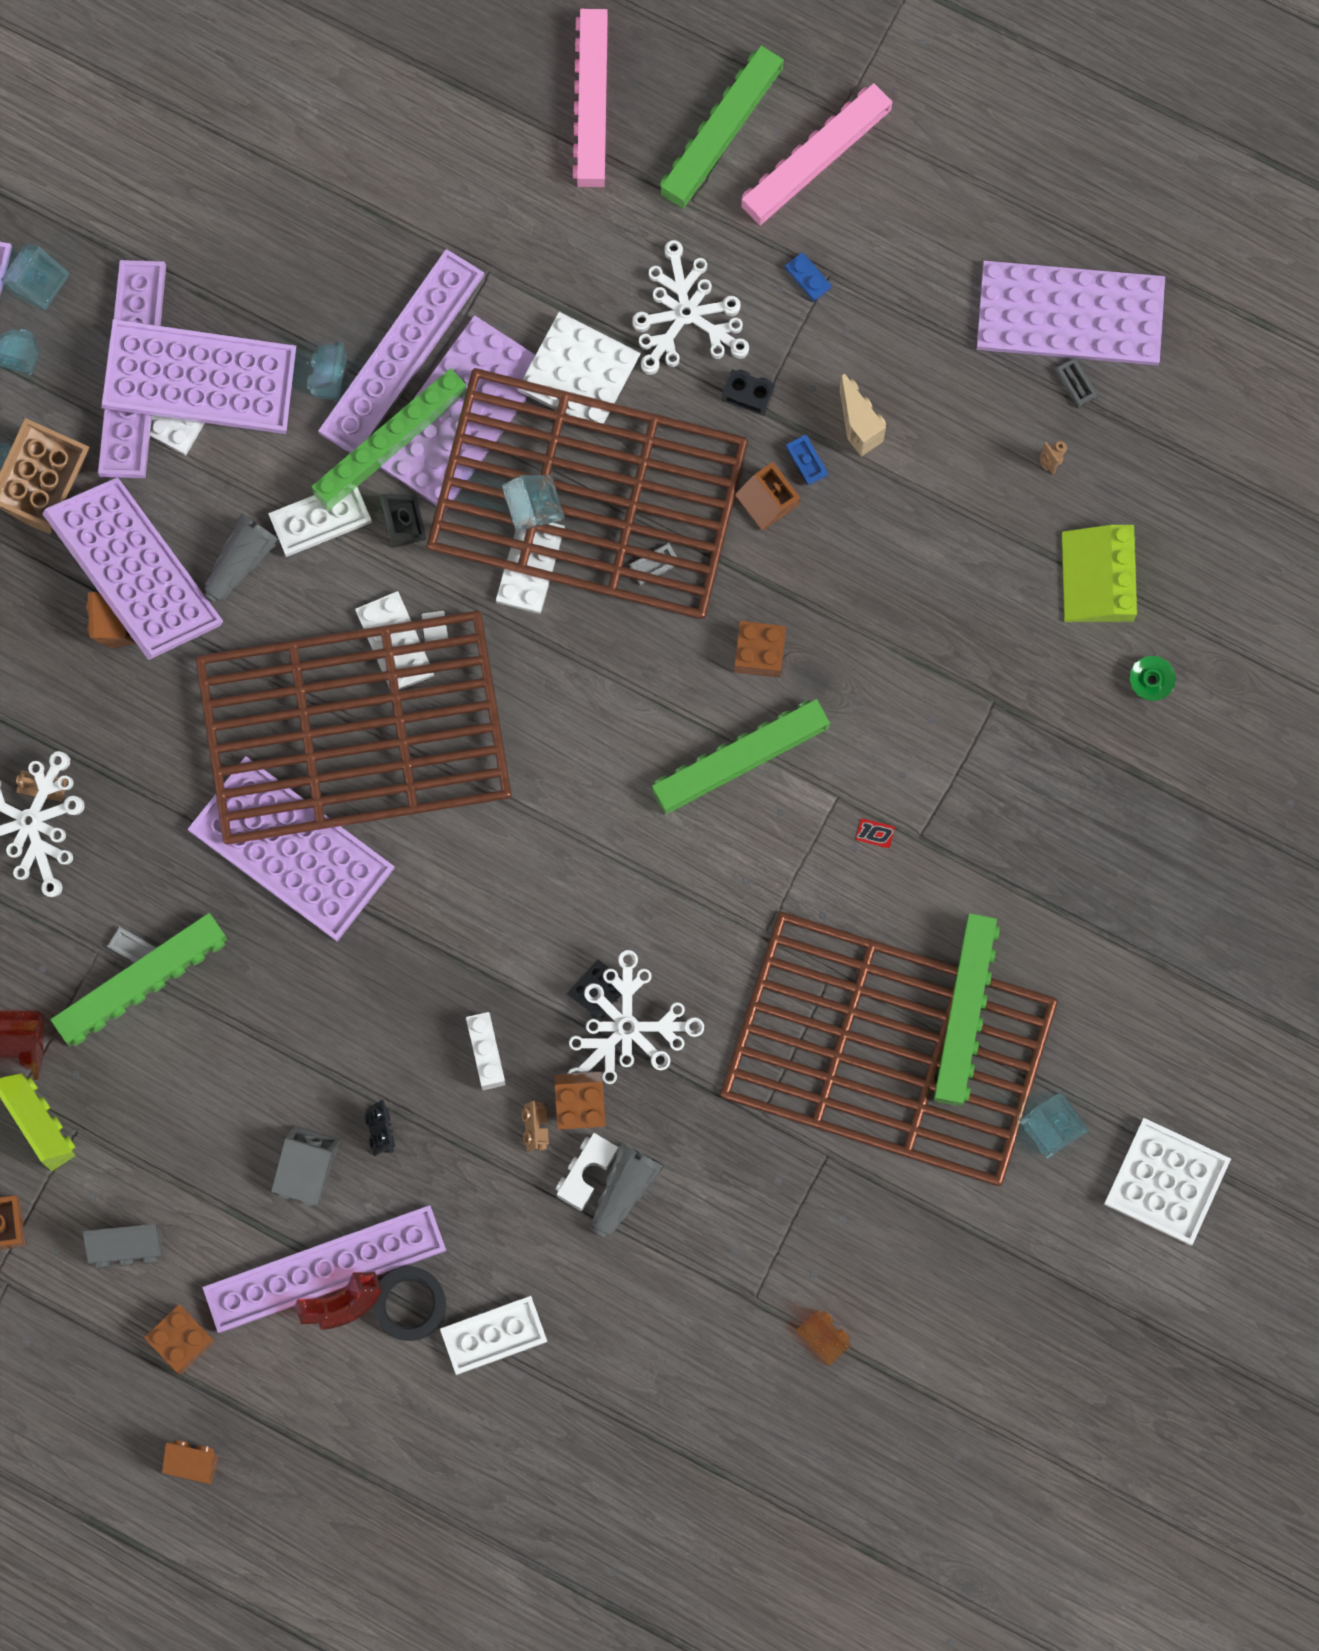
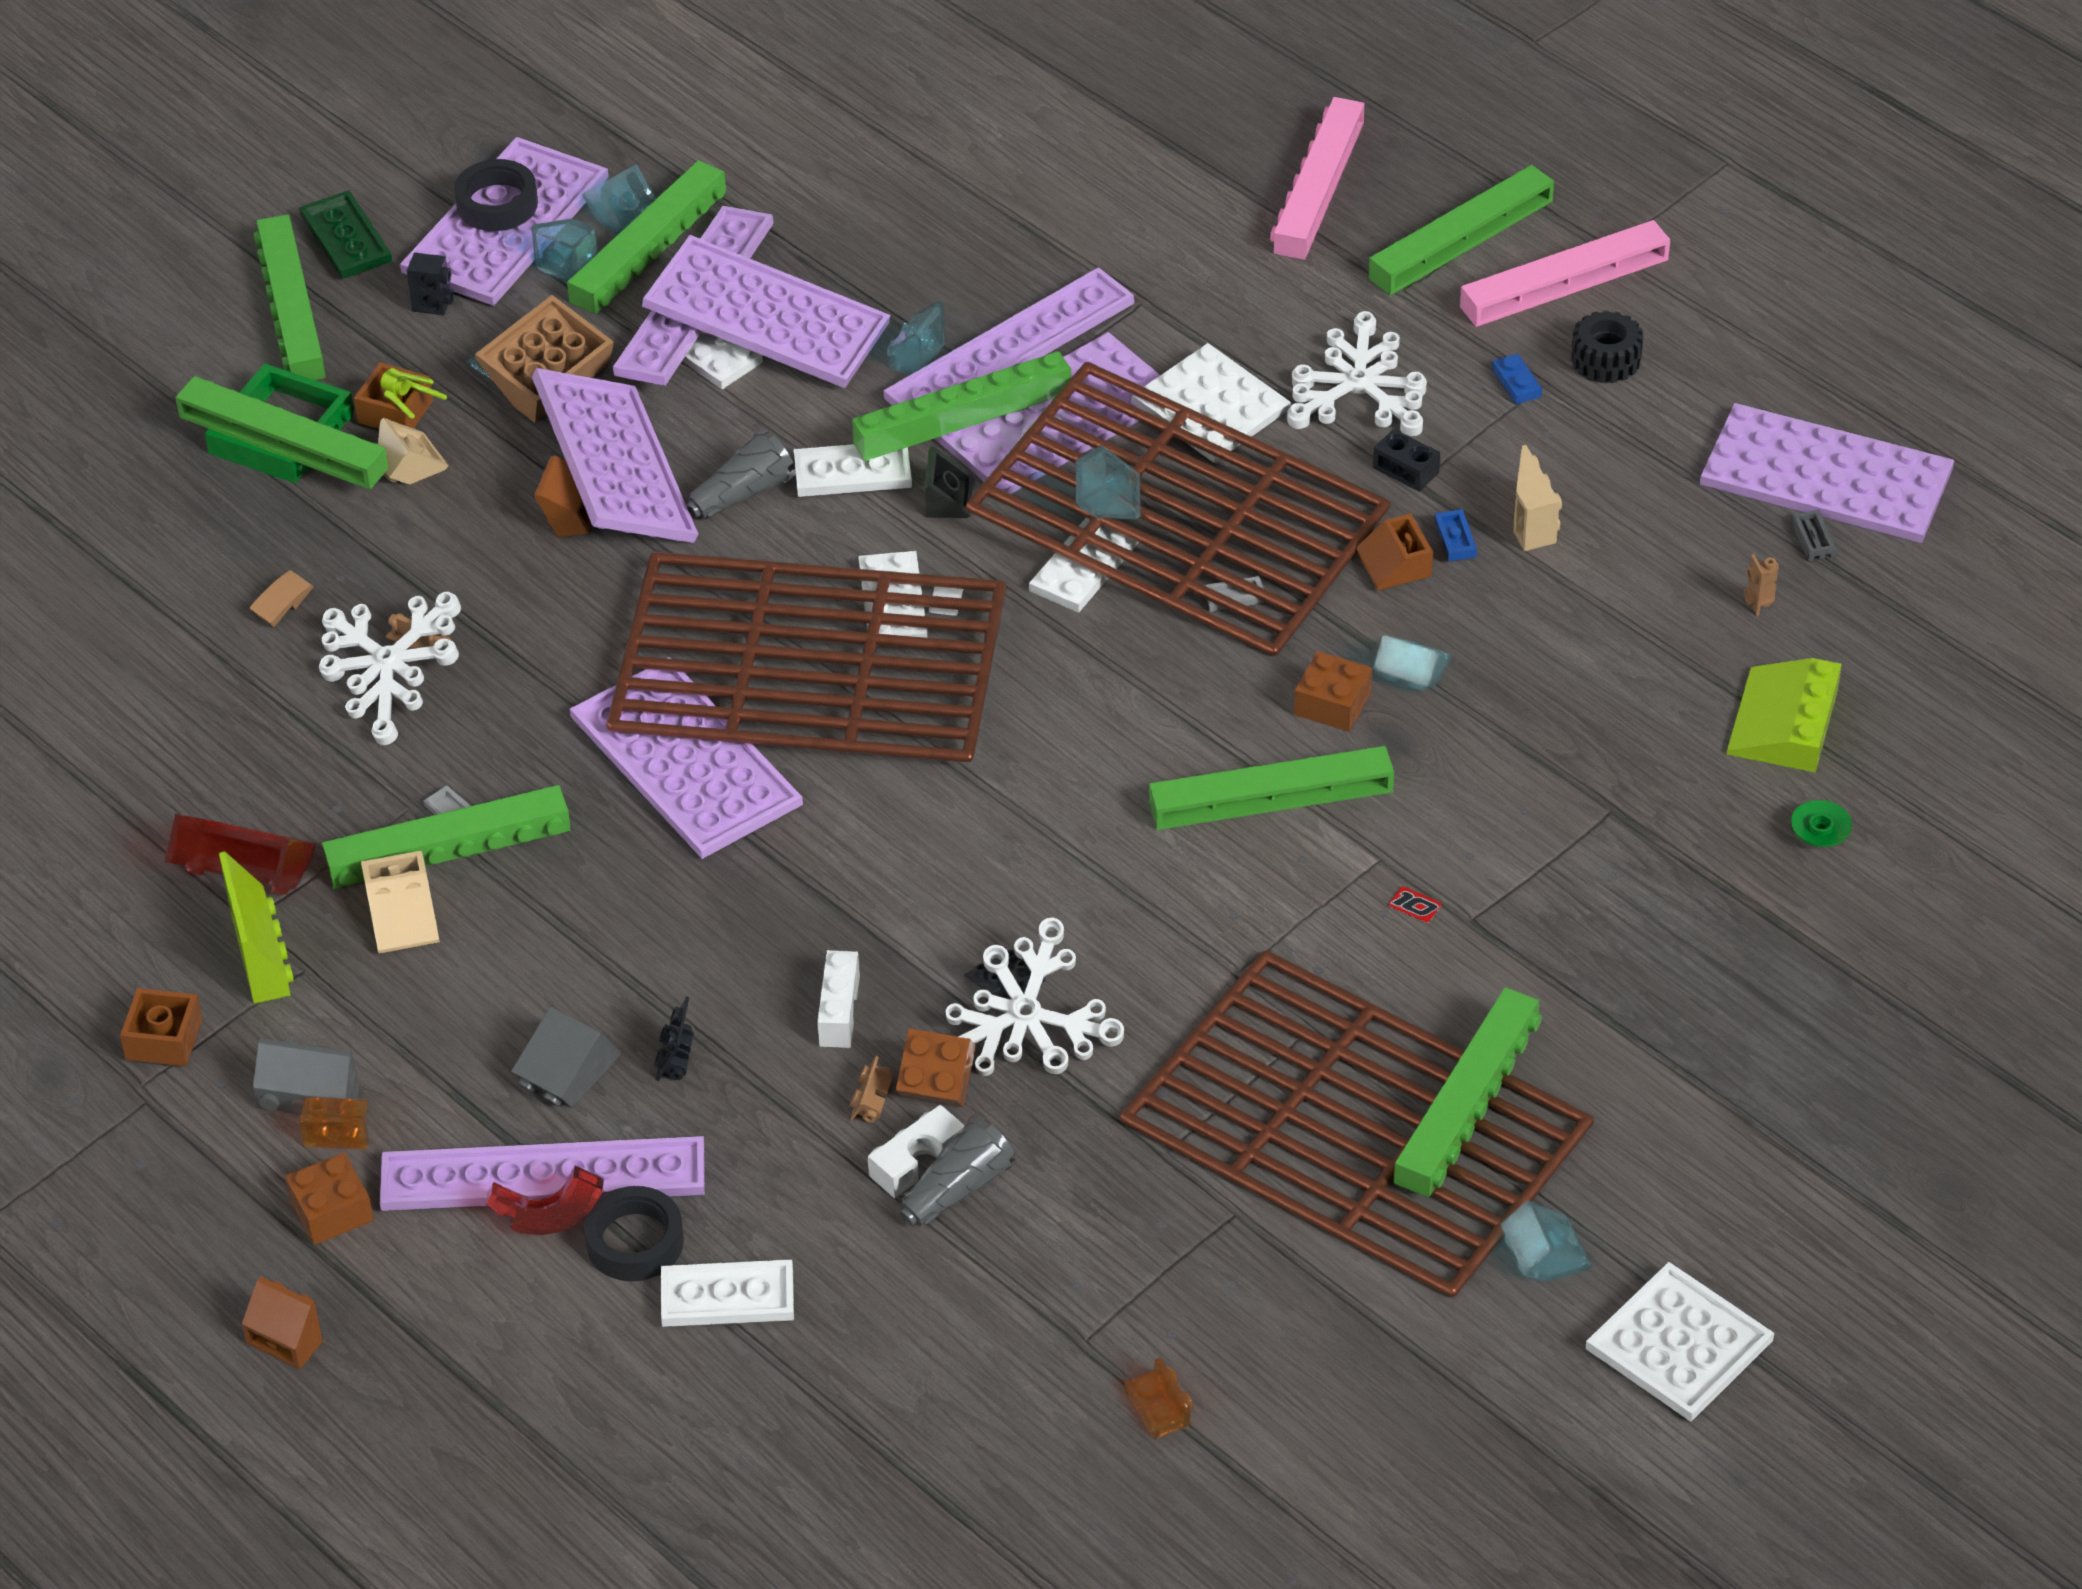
camera: 20 degrees right, 30 degrees down
(70, 311) = (646, 237): none -> bright green brick
(129, 1056) = (400, 902): none -> tan slope
(158, 1271) = (334, 1123): none -> clear orange bracket
(810, 600) = (1411, 662): none -> clear light blue slope
(876, 213) = (1607, 346): none -> black tyre

